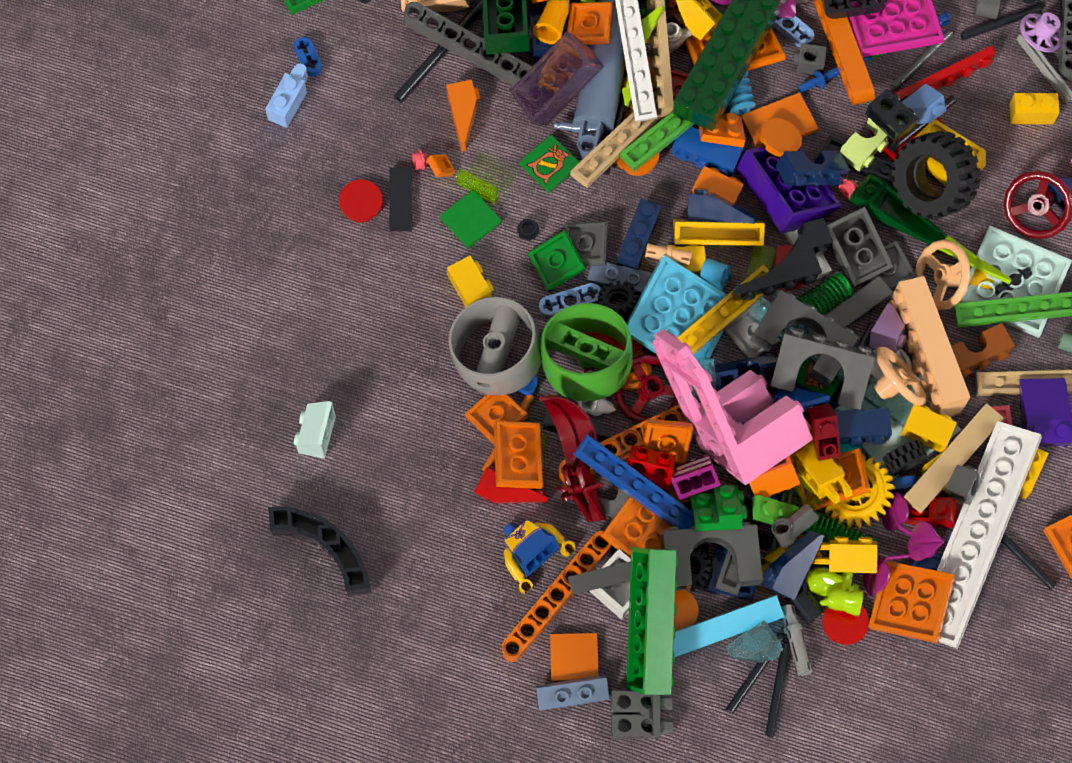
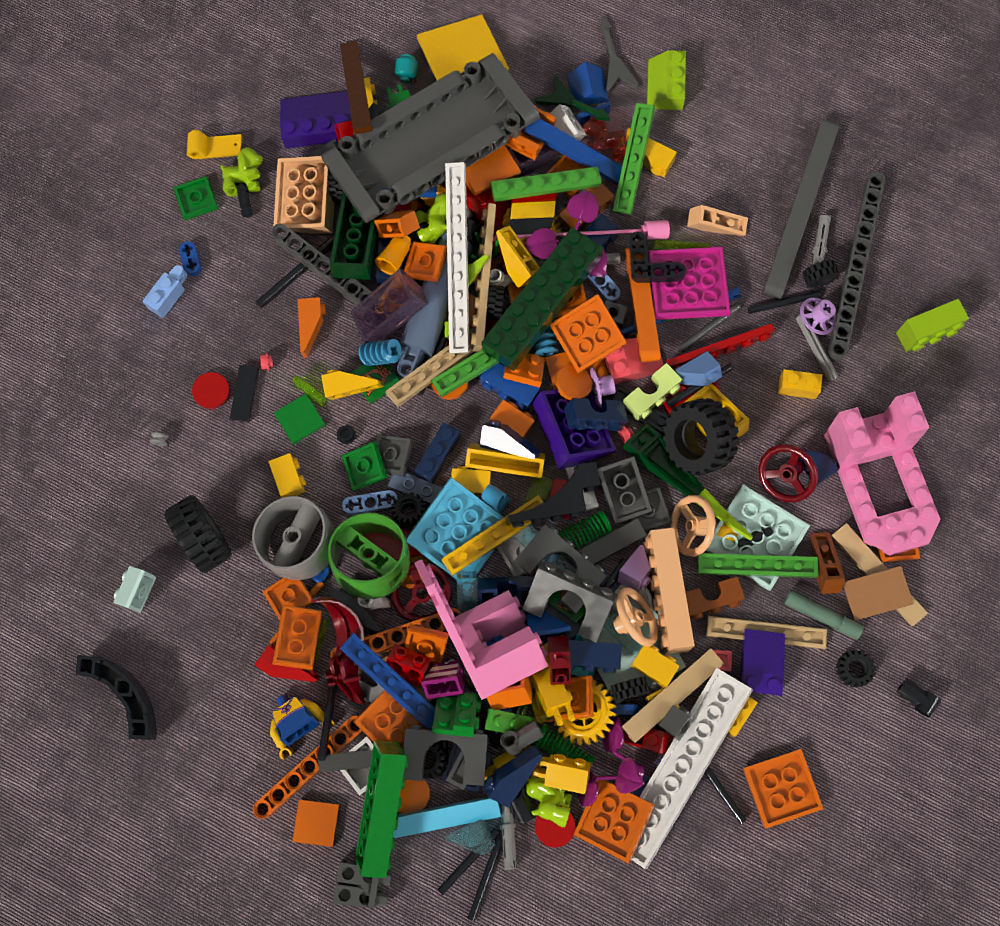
camera: 15 degrees right, 5 degrees up
(311, 261) = (158, 439): none -> light grey bush
(385, 353) = (197, 534): none -> black tyre
(441, 165) = (282, 368): orange tile -> none
(517, 172) = (342, 384): none -> yellow slope
(554, 130) = (380, 352): none -> dark azure piece
(569, 542) = (327, 723): none -> black bar
(572, 692) = (307, 855): sand blue plate -> none
(676, 255) = (458, 475): light nougat pin -> none
(678, 59) = (495, 302): none -> black tyre
(789, 80) = (588, 333): none -> orange plate
(815, 137) = (603, 385): none -> lavender wheel
(833, 109) = (626, 365): none -> coral slope
(887, 119) = (667, 380): black brick -> none

